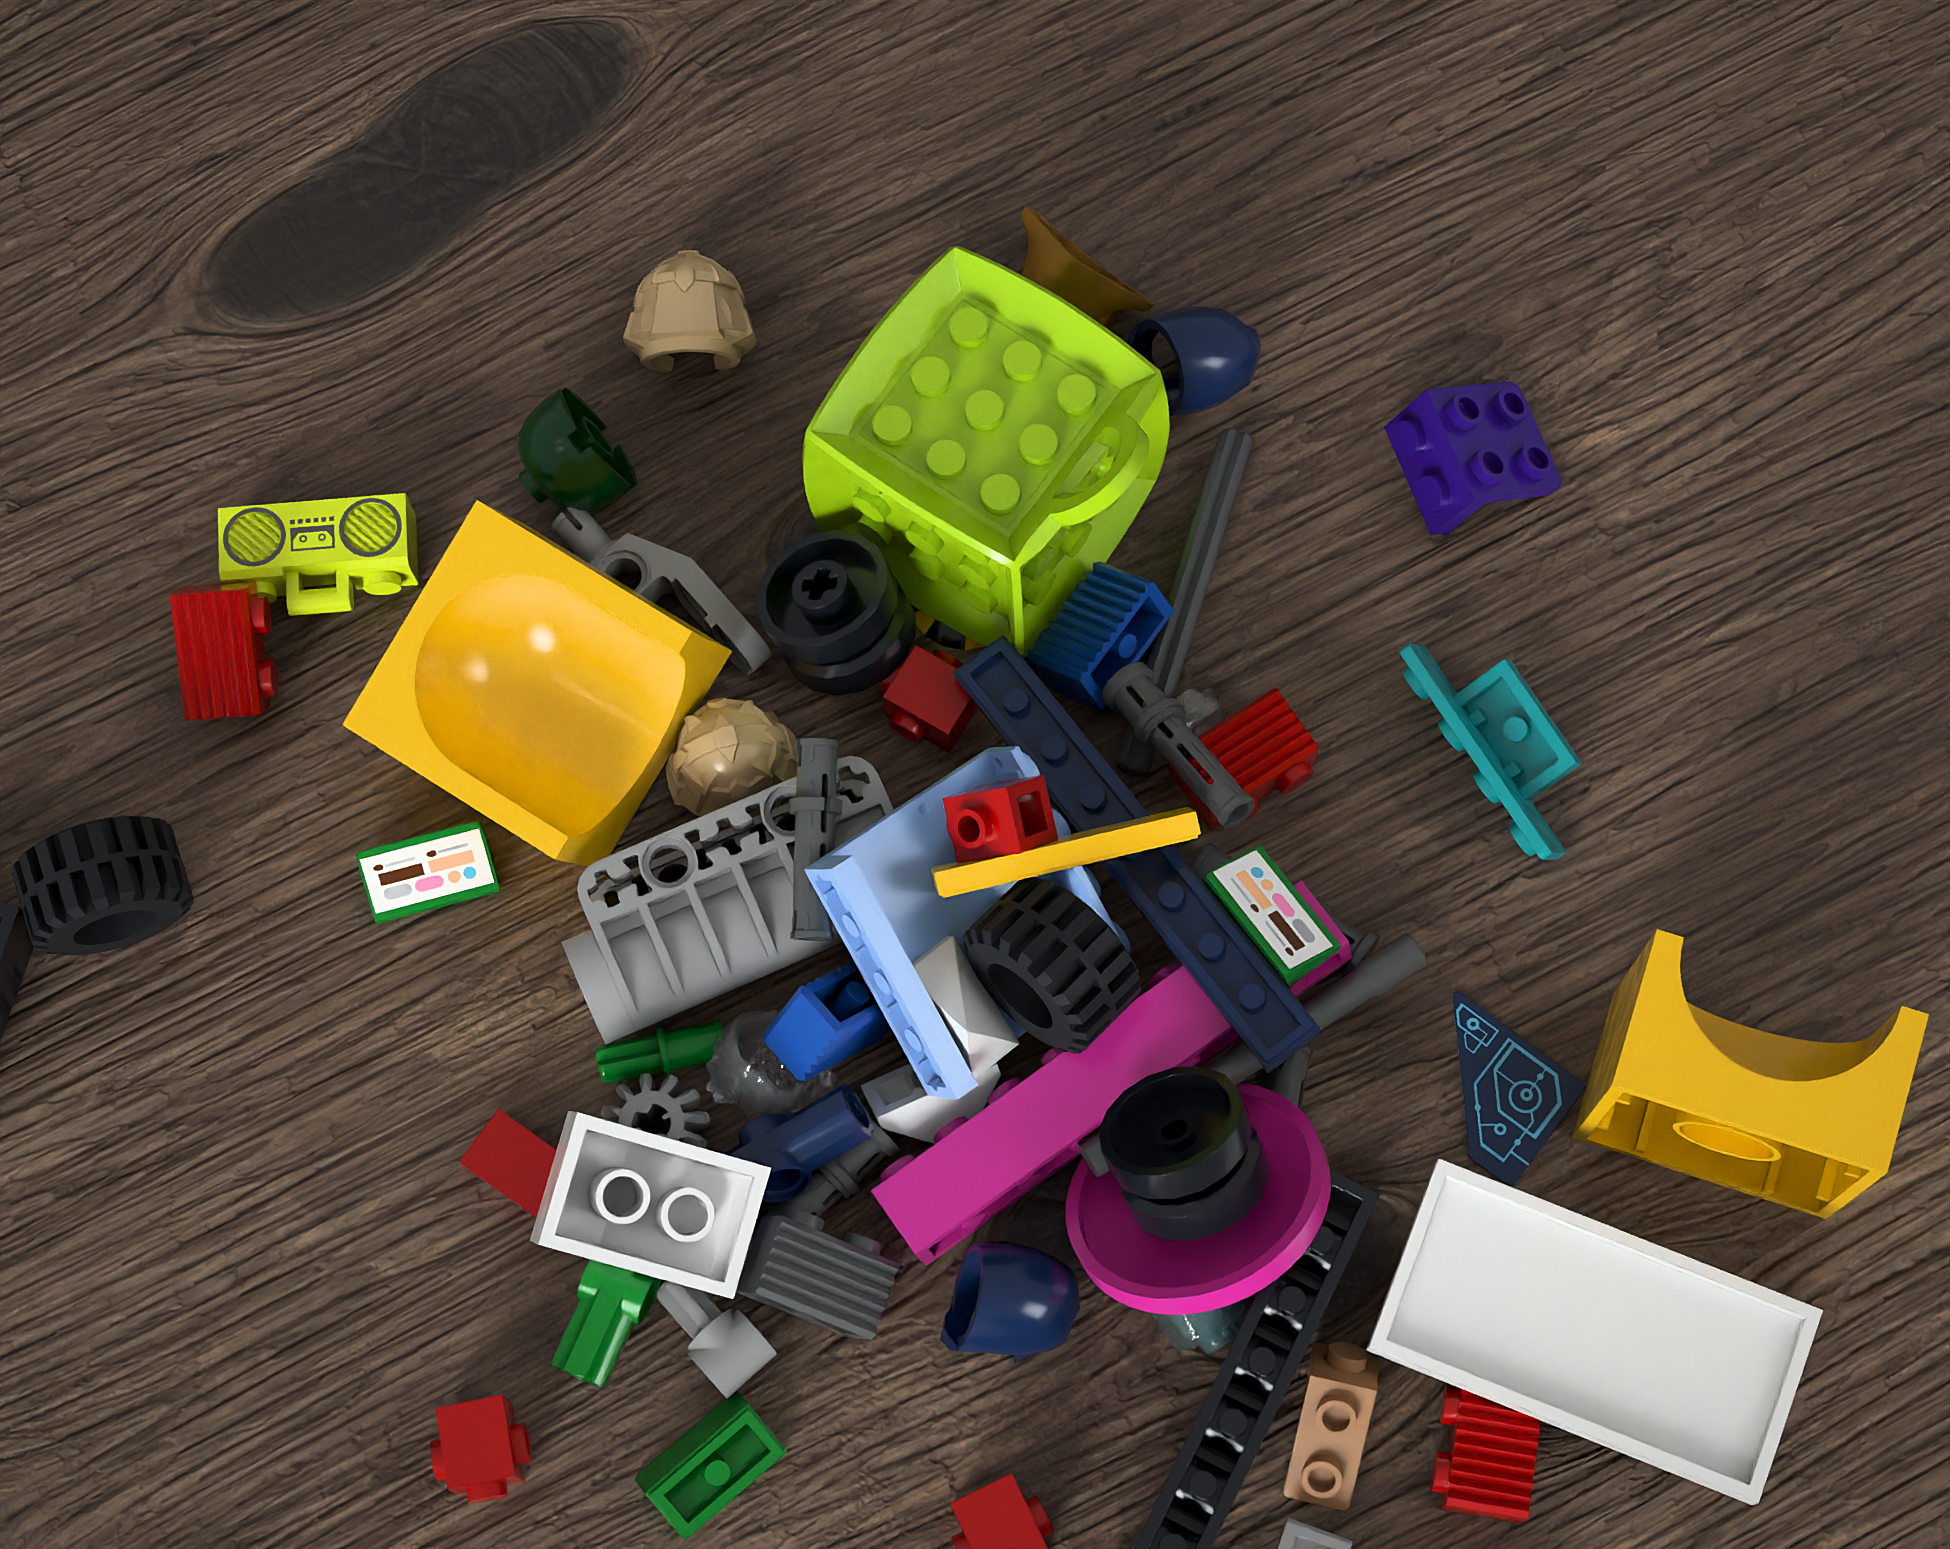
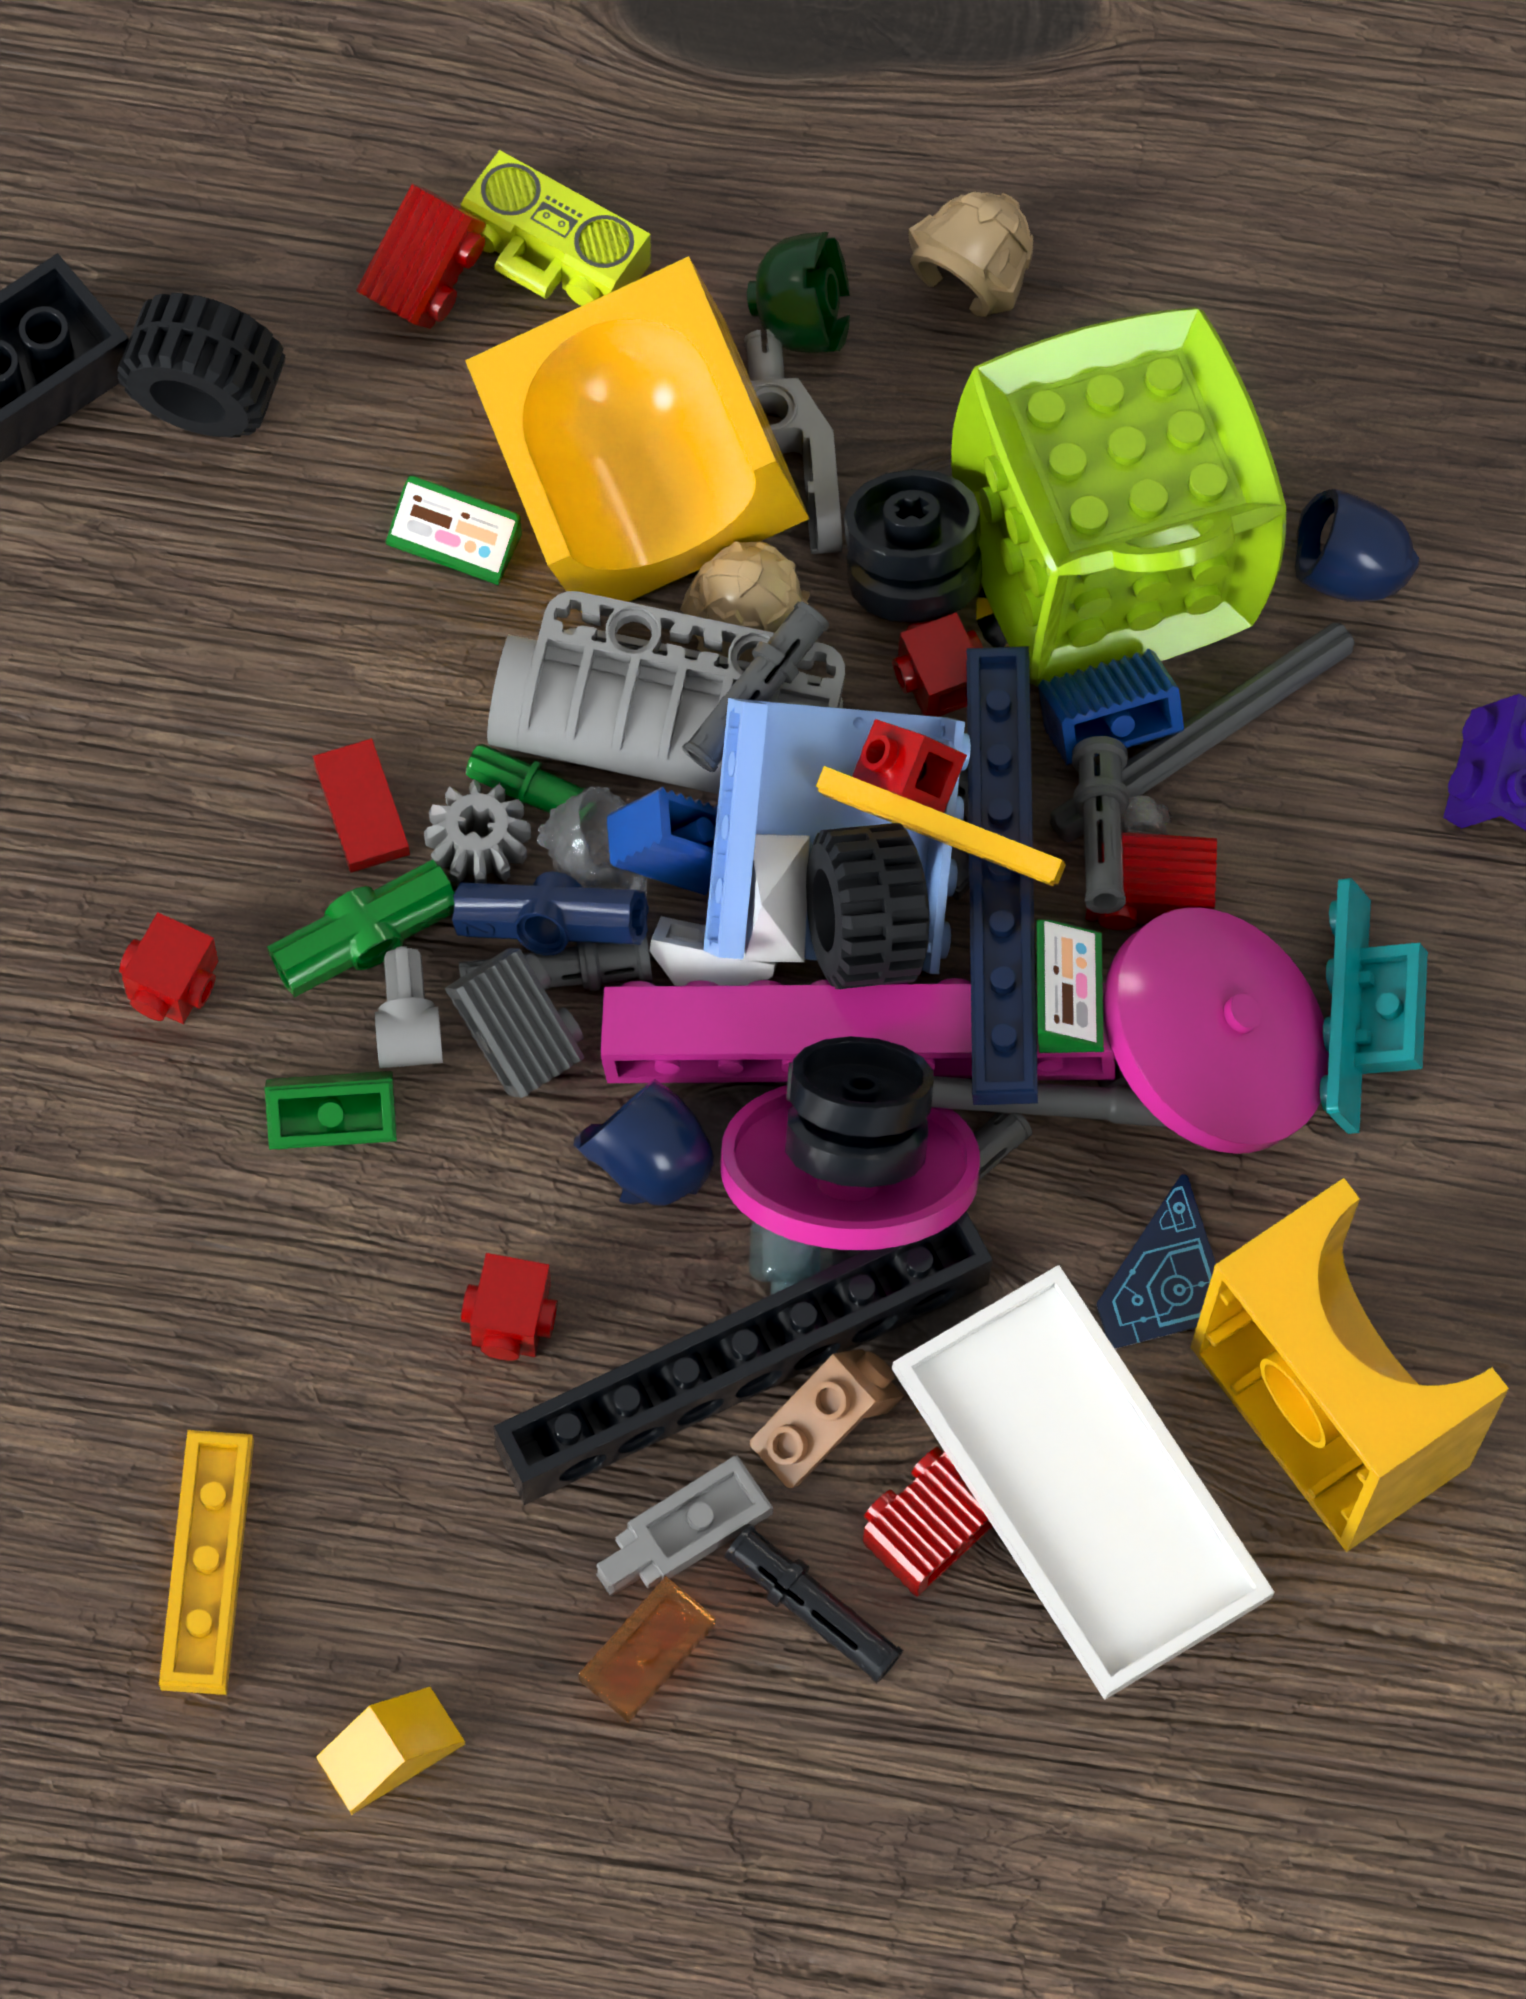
camera: 30 degrees right, 5 degrees down
(650, 1204) = (427, 871): white slope -> none
(1073, 275) = (1303, 426): pearl gold hat -> none
(1404, 856) = (1216, 1030): none -> dark pink dish

